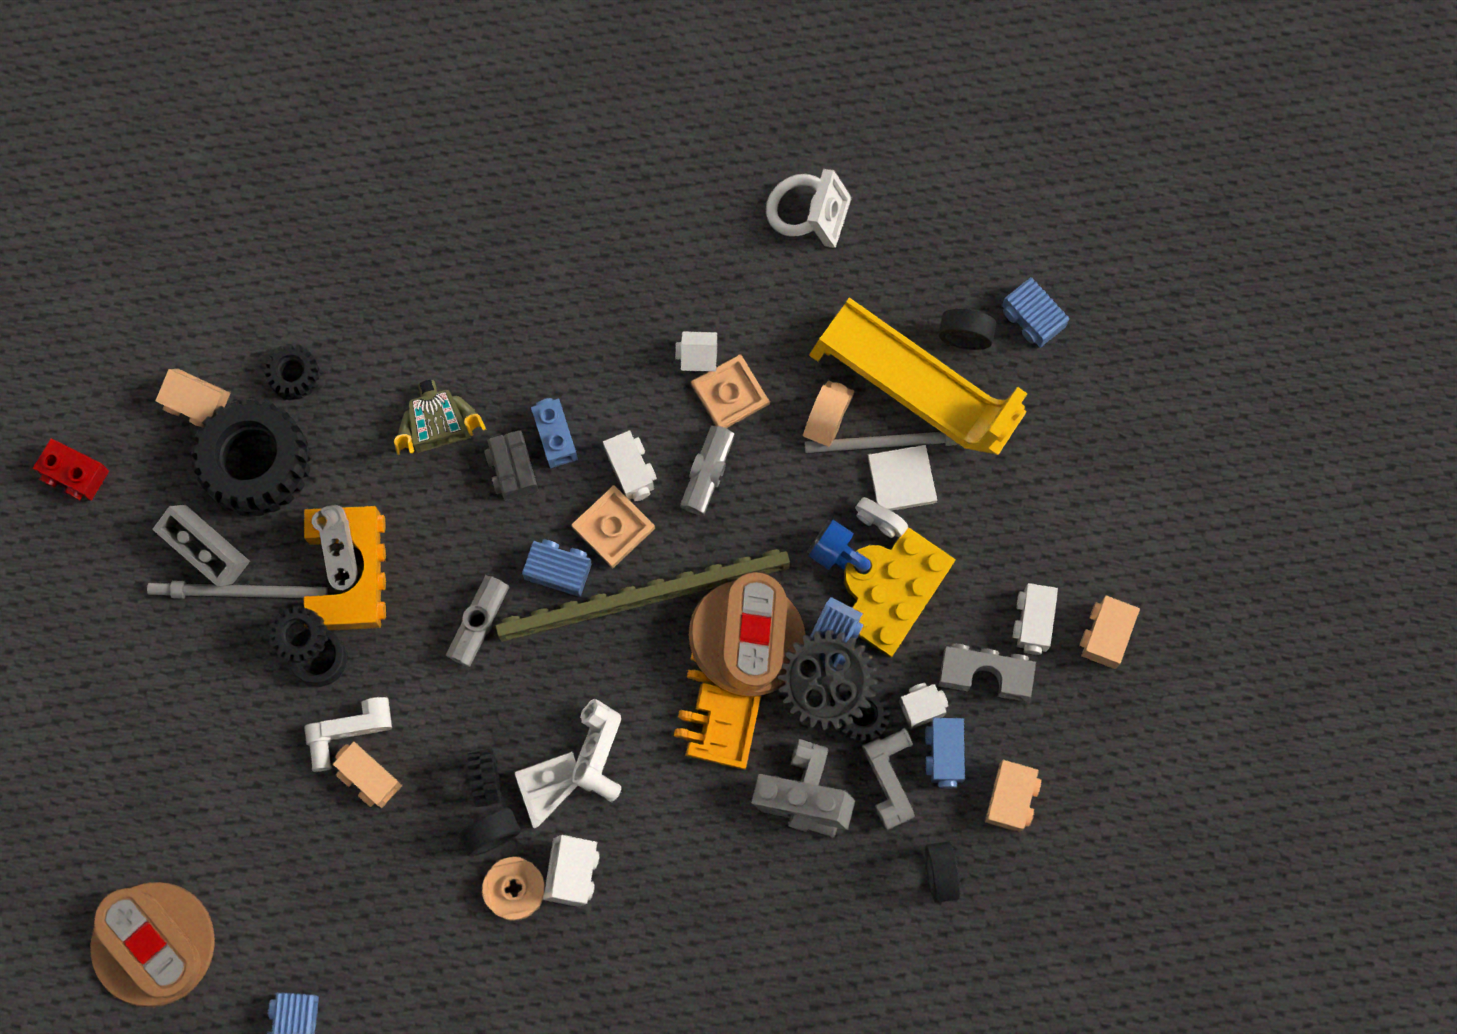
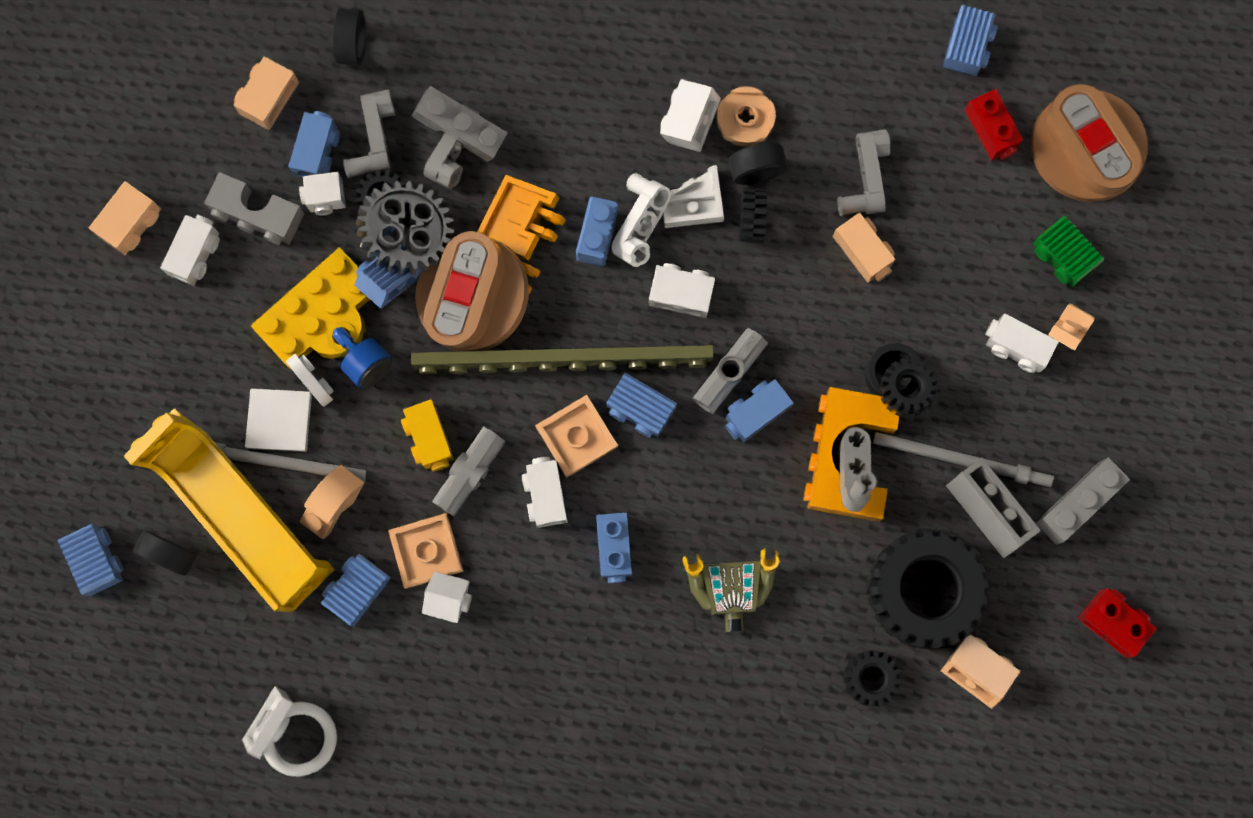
camera: 165 degrees left, 5 degrees up
(116, 572) = (1082, 501): none -> light grey brick
(148, 738) = (1071, 326): none -> light nougat bracket
(160, 818) = (1067, 252): none -> green brick
(196, 714) = (1020, 343): none -> white brick
(253, 936) = (994, 125): none -> red brick
(374, 719) = (848, 299): white beam -> none
(379, 883) = (869, 147): none -> light grey beam
(443, 588) = (757, 411): none -> medium blue brick
(512, 465) = (664, 521): flat silver brick -> none
(541, 689) = (681, 290): none -> white brick
(638, 728) = (597, 231): none -> medium blue brick
(754, 494) = (428, 435): none -> yellow brick
(783, 341) = (355, 589): none -> medium blue brick

